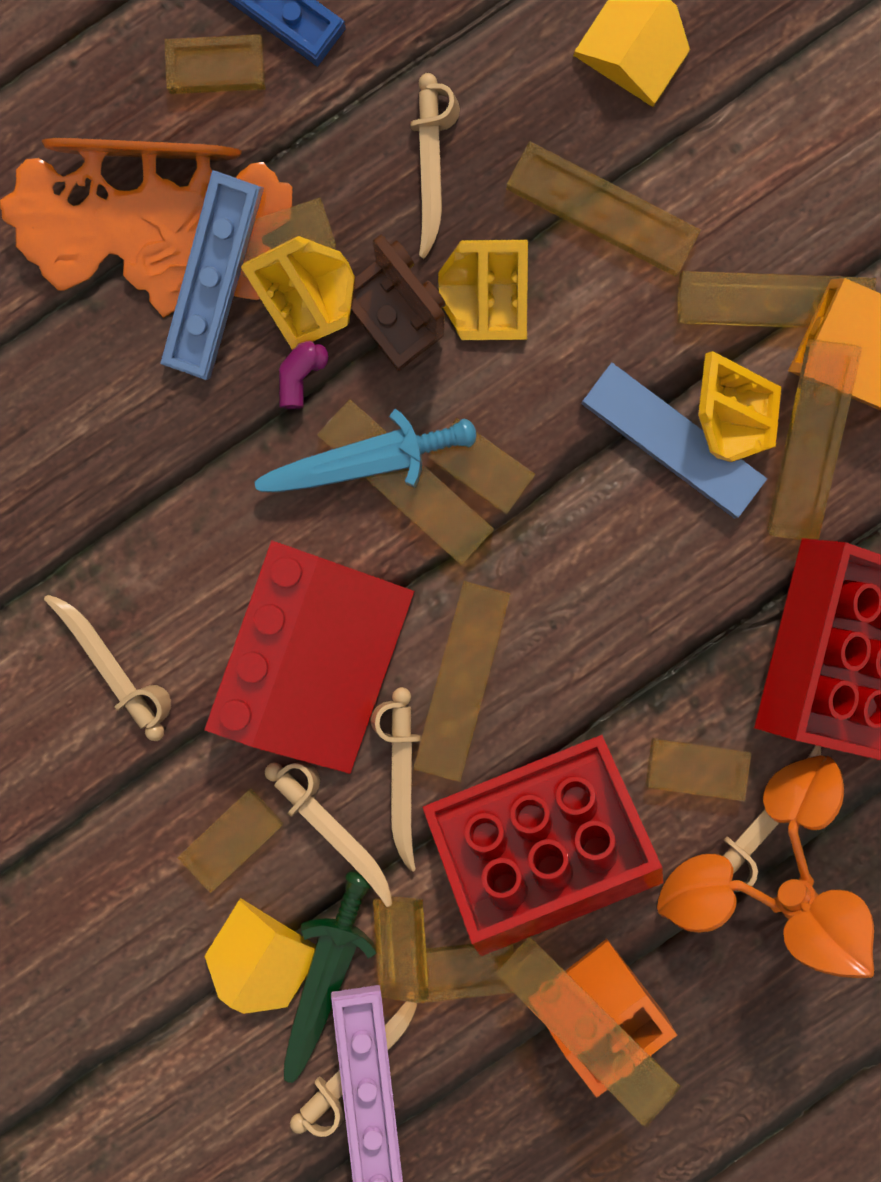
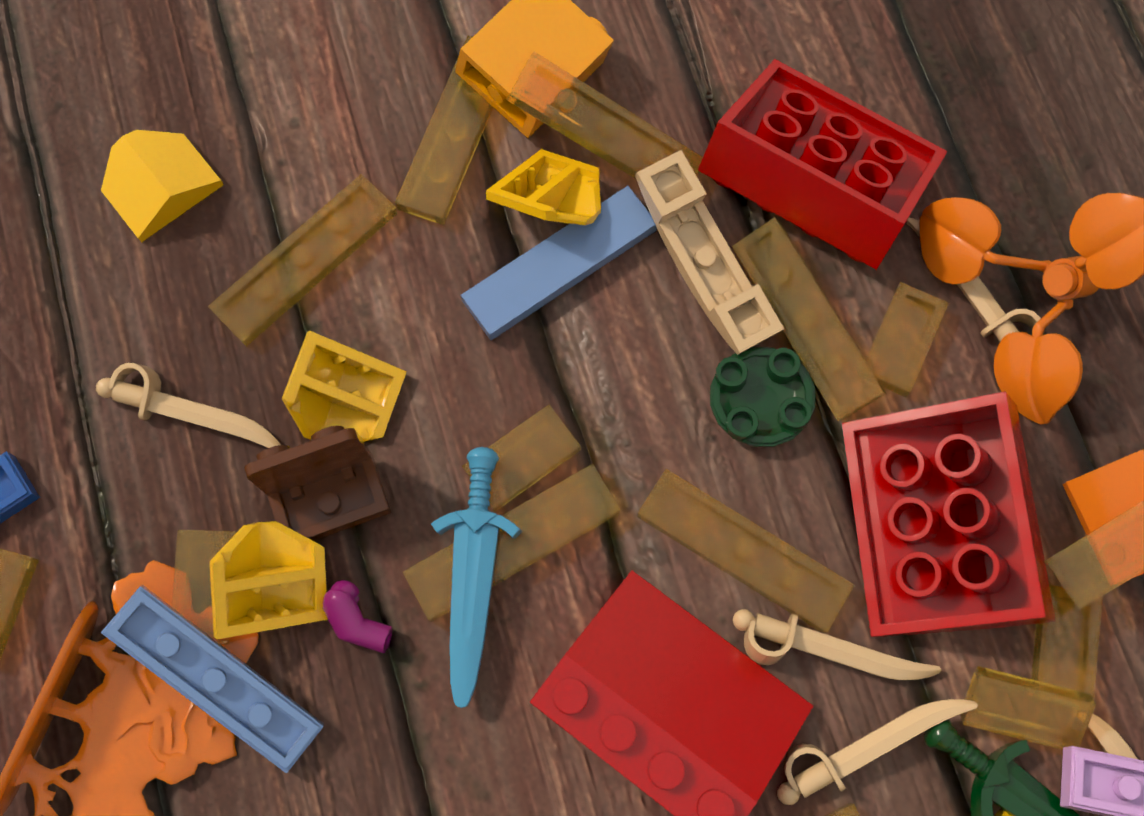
camera: 65 degrees left, 15 degrees down
(603, 658) = (762, 396): none -> dark green dish
(689, 678) = (809, 320): none -> clear yellow tile
(720, 569) = (703, 255): none -> tan slope

